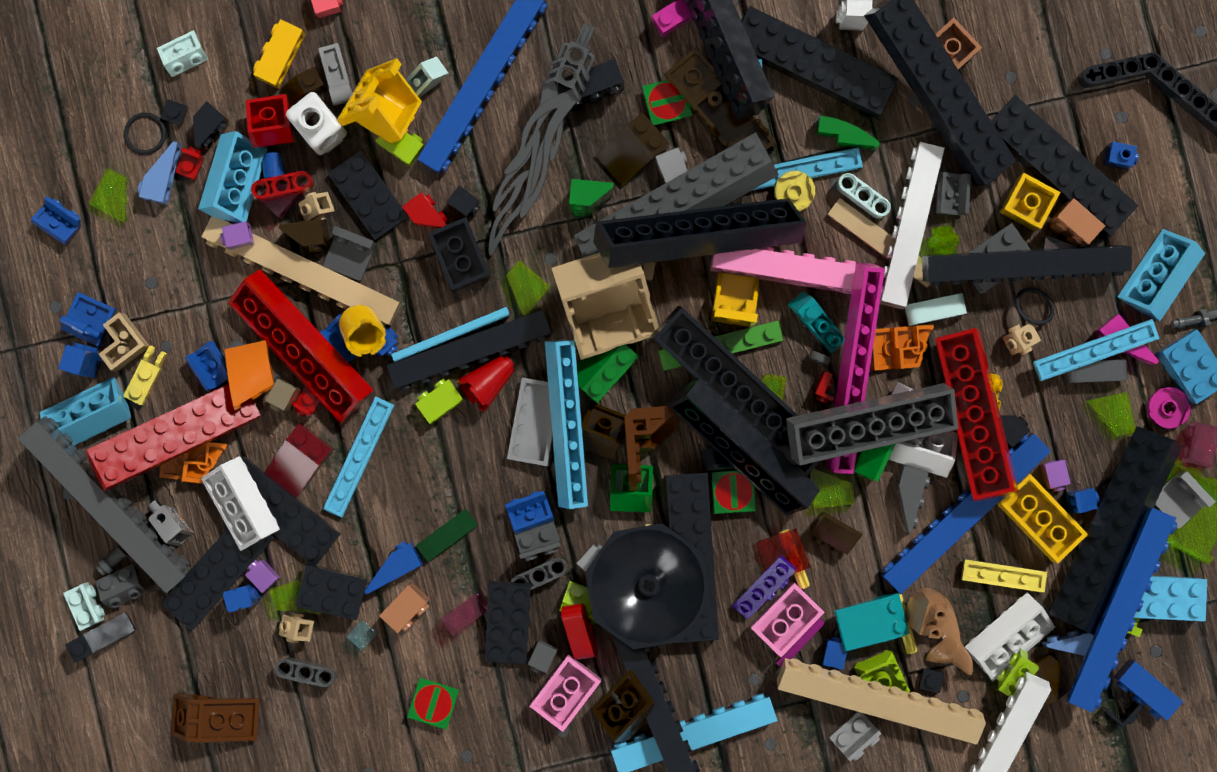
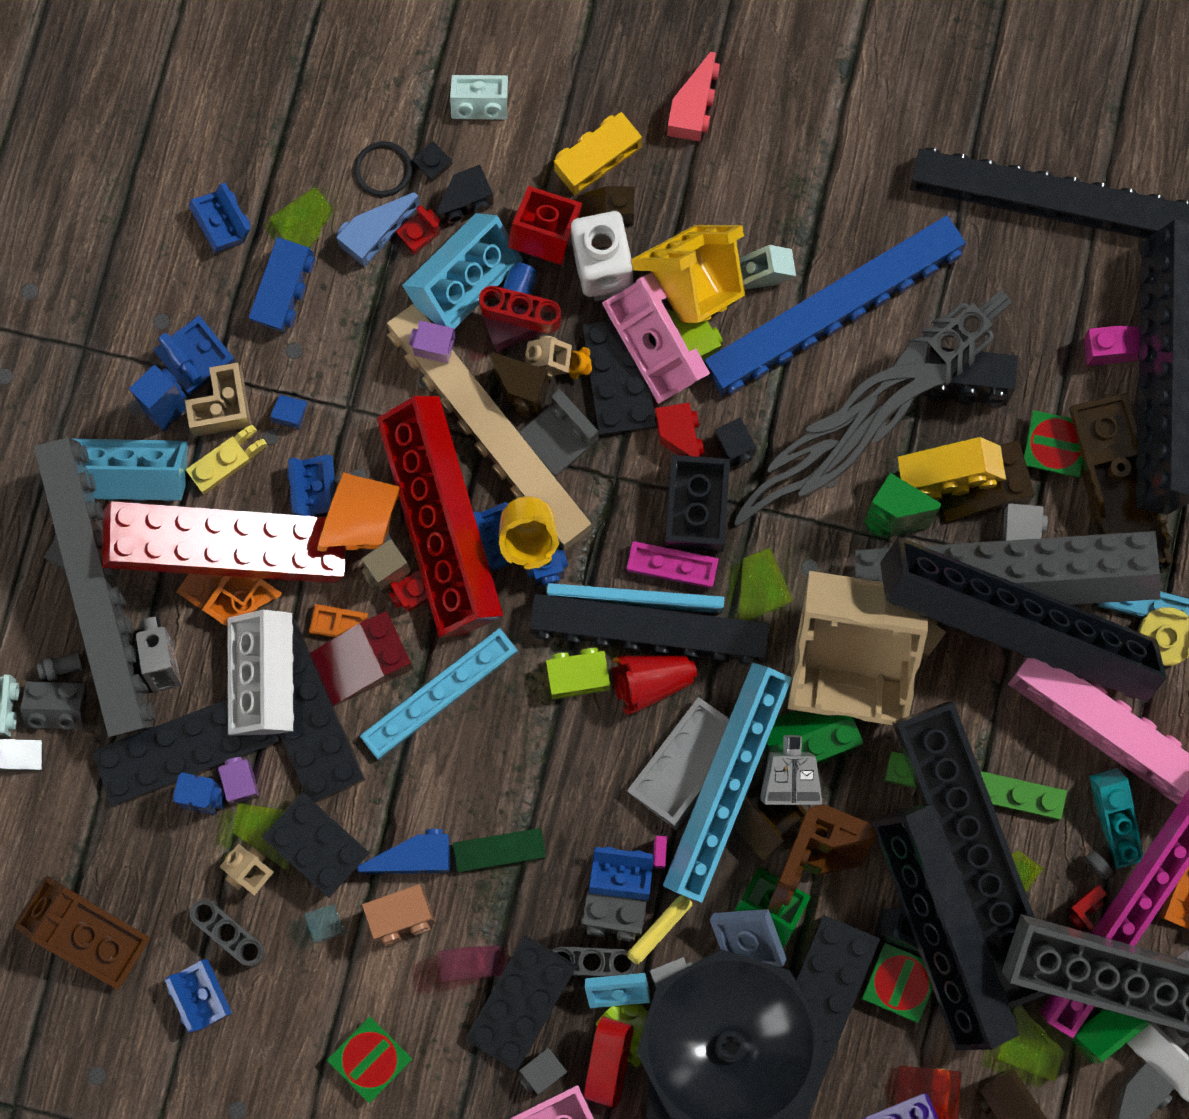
camera: 30 degrees right, 10 degrees down
(120, 245) = (282, 285): none -> blue brick
(169, 324) = (289, 411): none -> blue slope
(269, 445) = (334, 621): none -> orange tile
(307, 719) = (198, 996): none -> blue bracket
(336, 74) = (655, 209): light grey plate -> none
(339, 200) = (580, 363): none -> light orange plate
(361, 151) = (669, 364): none -> bright pink piece
(463, 301) = (672, 564): none -> dark pink plate
(546, 486) = (659, 852): none -> dark pink tile
(563, 585) = (617, 990): none -> medium azure plate
(569, 535) = (659, 929): none -> light yellow axle
(604, 401) = (791, 776): none -> light grey torso
(609, 153) = (954, 467): none -> yellow brick
(627, 513) = (749, 935): none -> sand blue plate
(735, 300) = (1023, 736): yellow bracket -> none

